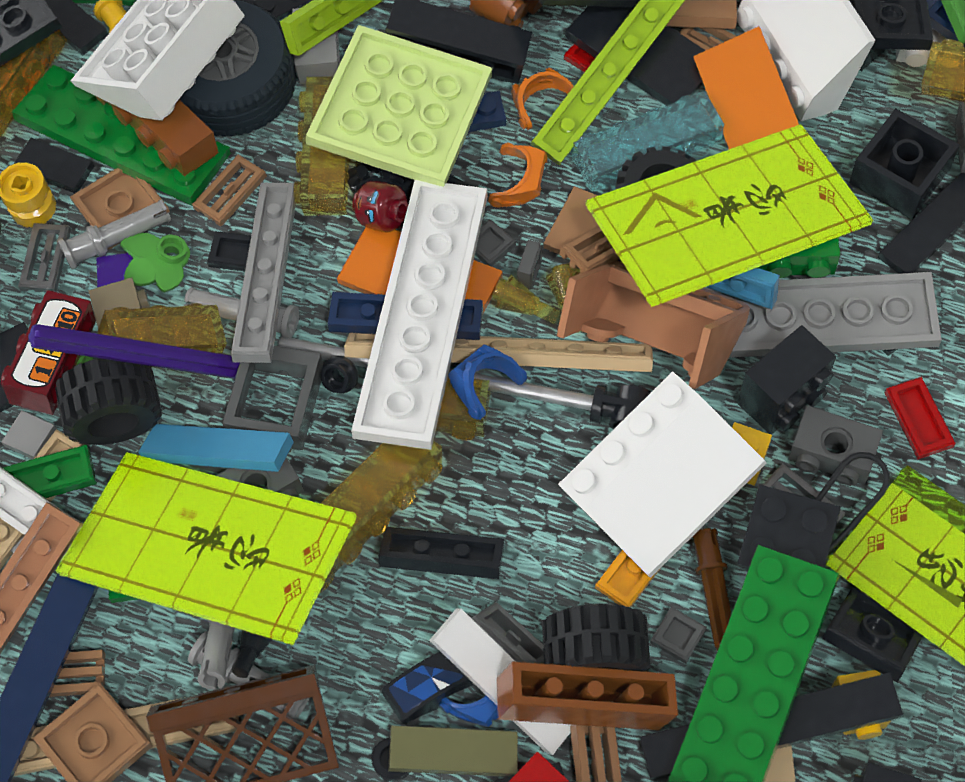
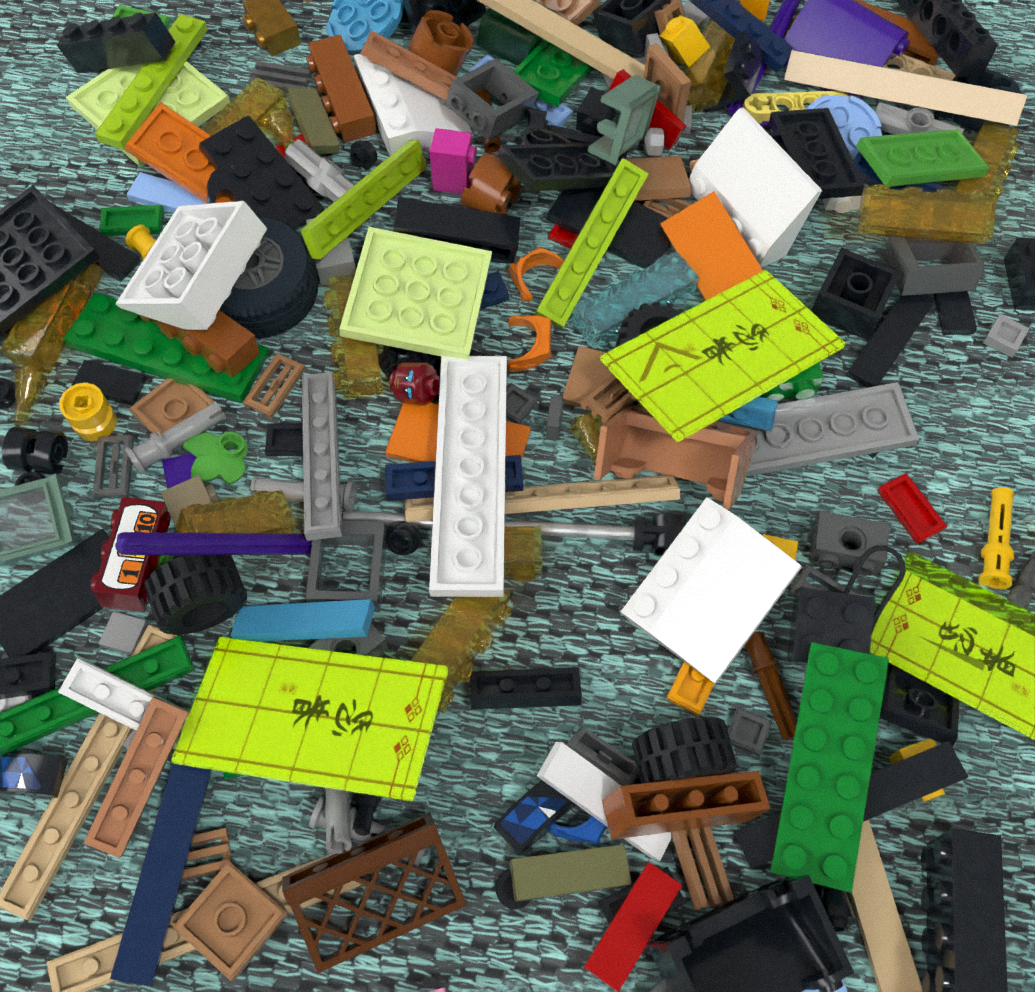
camera: 15 degrees left, 0 degrees up
(483, 358) = (520, 524): blue helmet -> none
(516, 297) = (548, 449): clear yellow cone -> none
(787, 380) = (800, 492): black brick -> none

